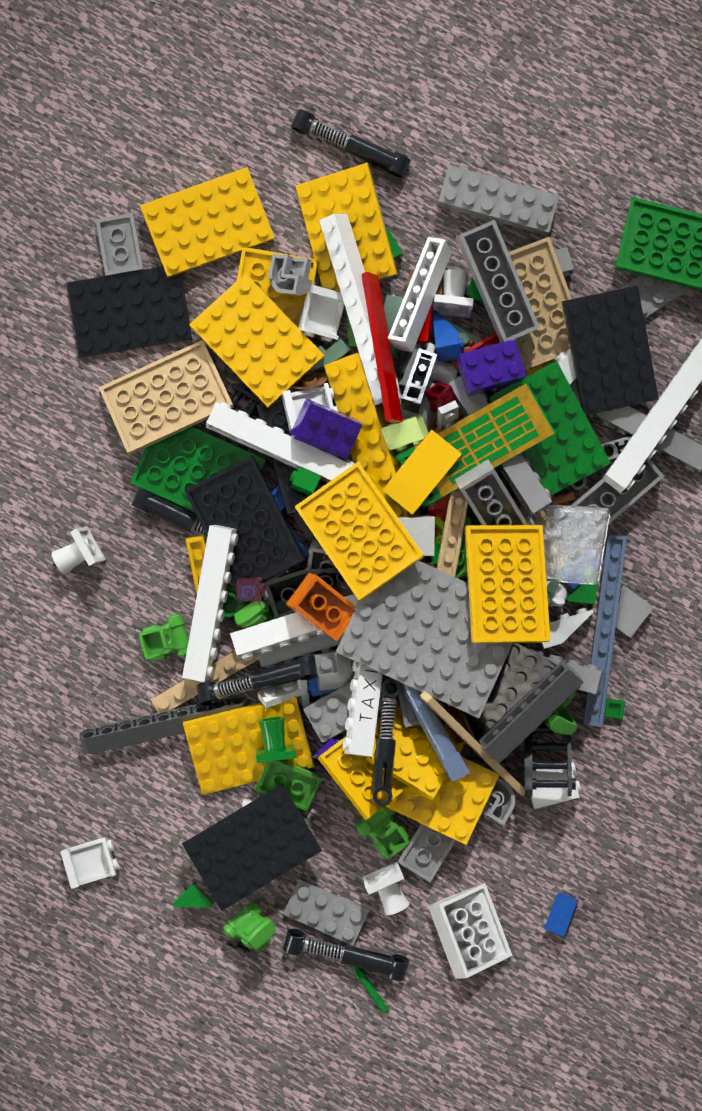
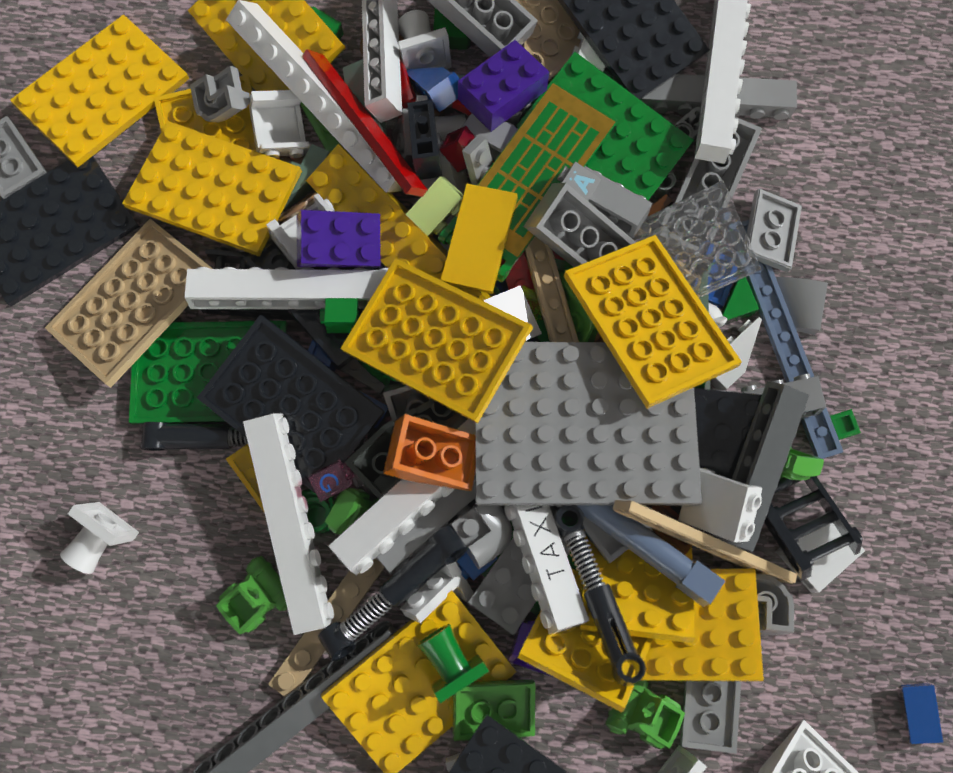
camera: 25 degrees left, 10 degrees down
(494, 726) = (726, 507): none -> white panel
(505, 467) = (580, 180): none -> light grey brick
(636, 551) = (773, 229): none -> light grey tile

